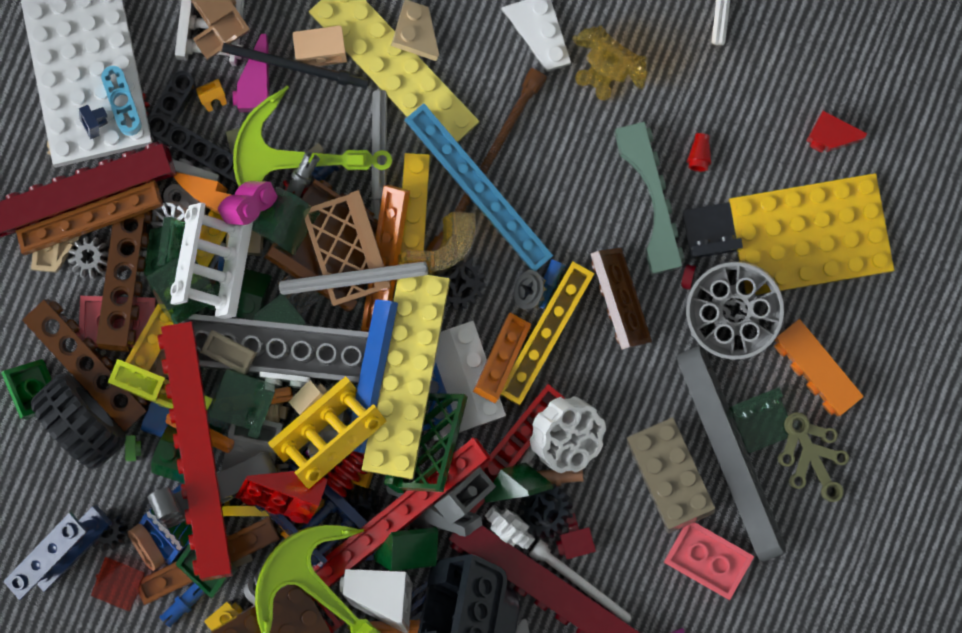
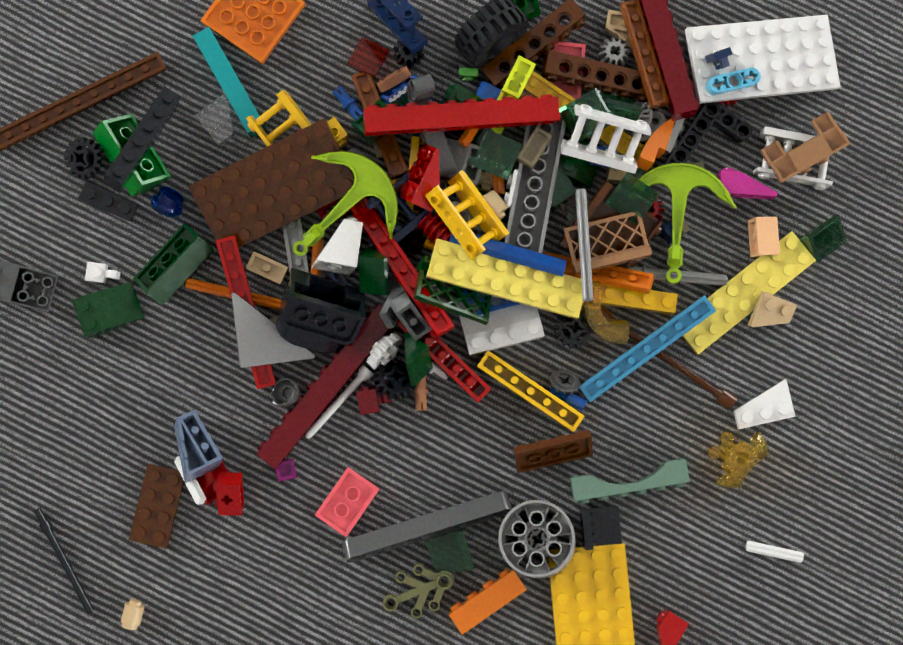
camera: 90 degrees right, 0 degrees up
(209, 92) = (734, 152): light orange tile -> none
(247, 202) = (648, 169): dark pink brick -> none
(302, 175) = (666, 213): dark grey pin -> none
(341, 77) = (739, 252): black bar -> none
(502, 358) = (514, 355): orange plate -> none
(567, 434) = (451, 400): white connector -> none
(670, 475) = (413, 478): dark tan brick -> none
(688, 276) = (565, 505): dark red tile -> none
(699, 156) = (660, 523): red cone -> none

